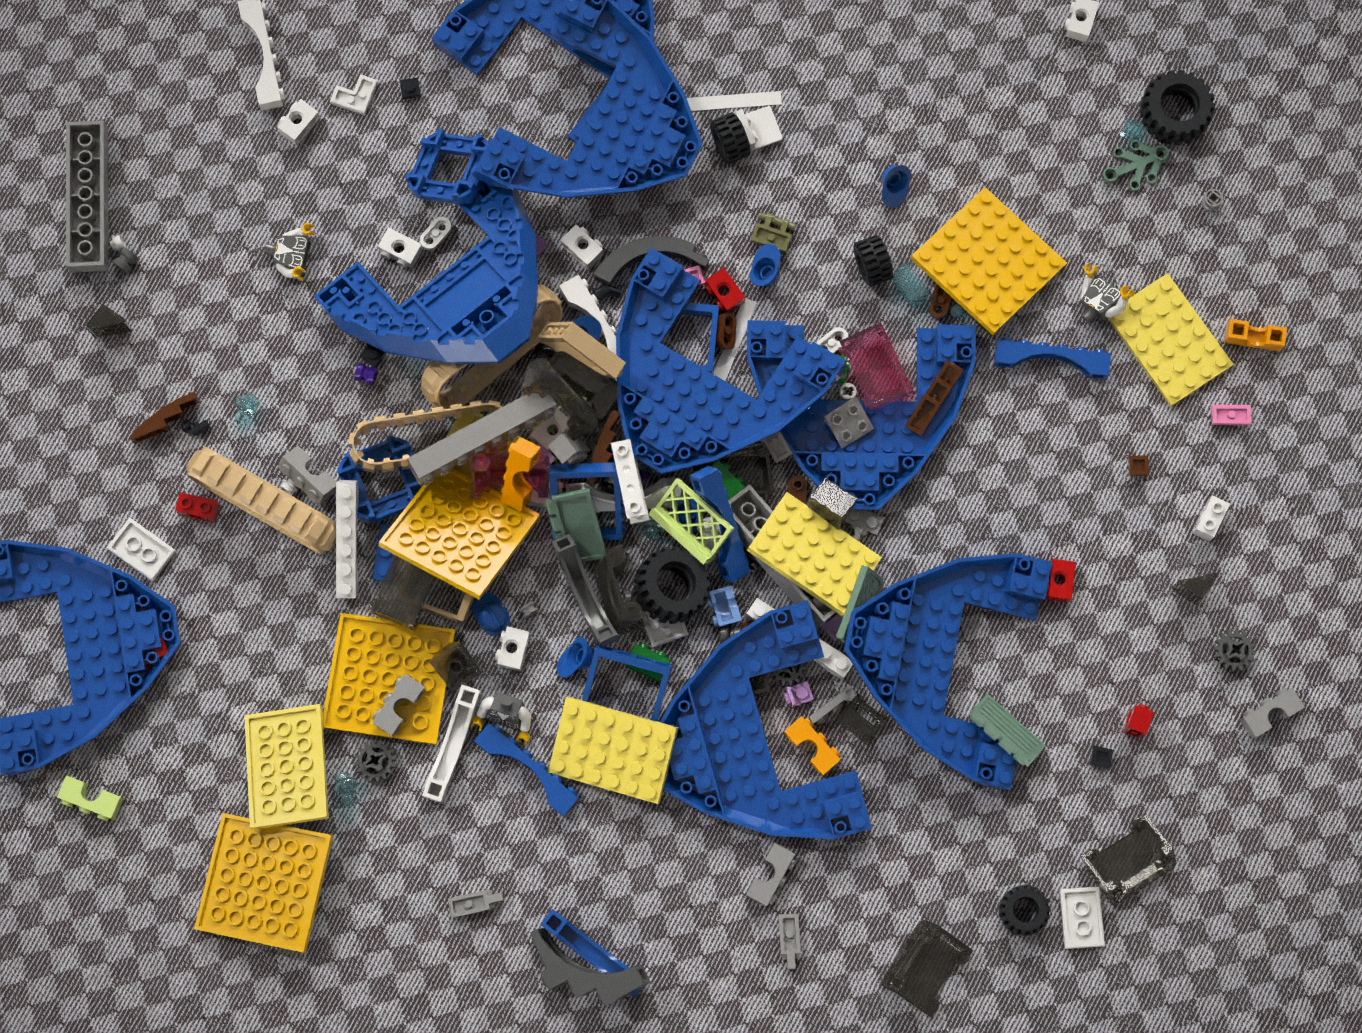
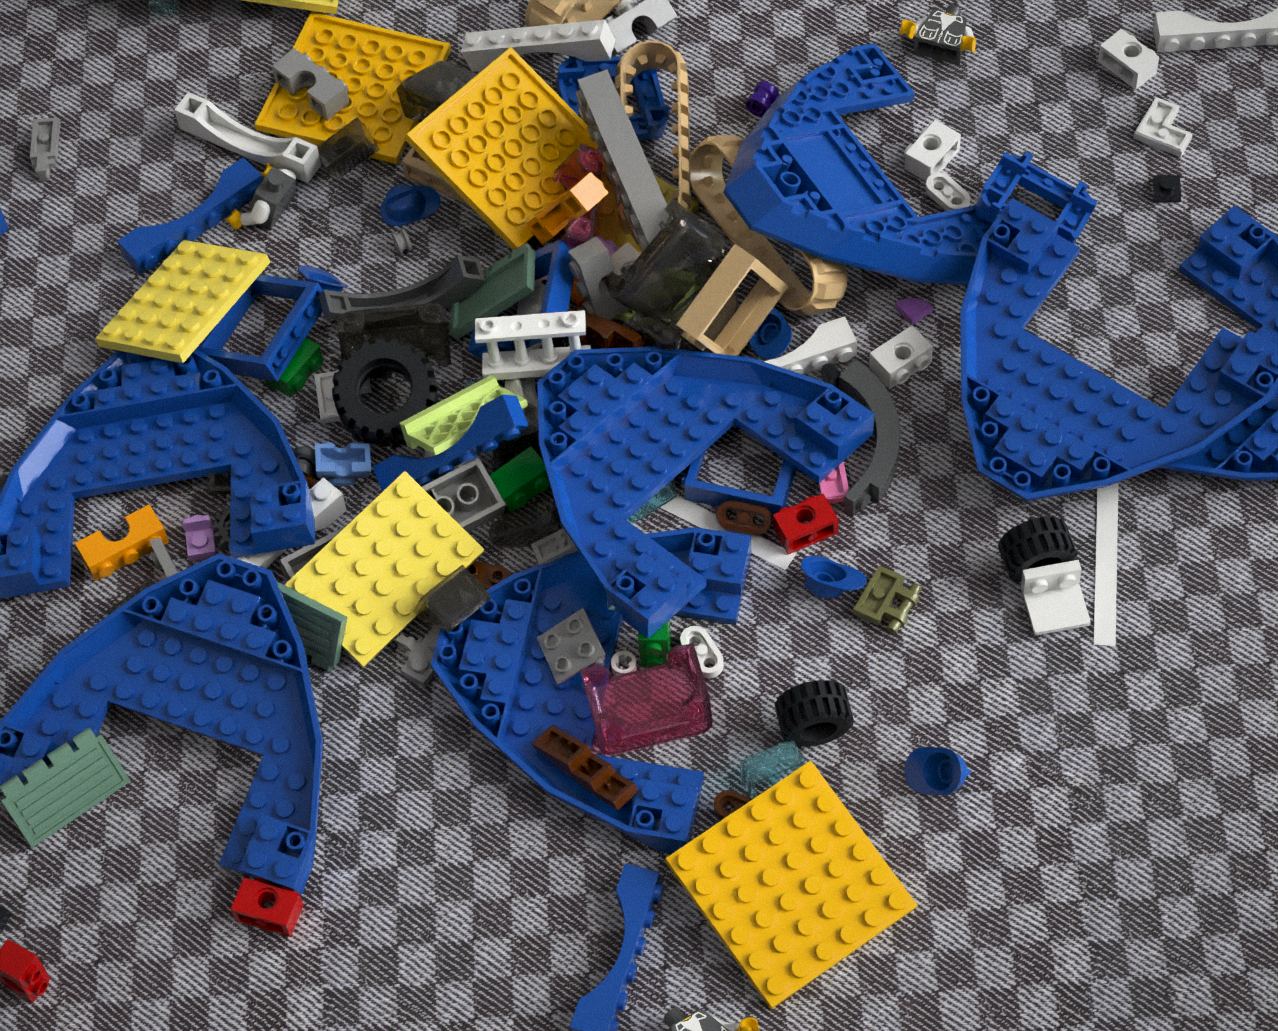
camera: 105 degrees right, 20 degrees down
(344, 786) = (230, 30): clear light blue animal -> none
(386, 755) = (251, 62): dark grey gear -> none
(512, 660) = (353, 218): white brick -> none

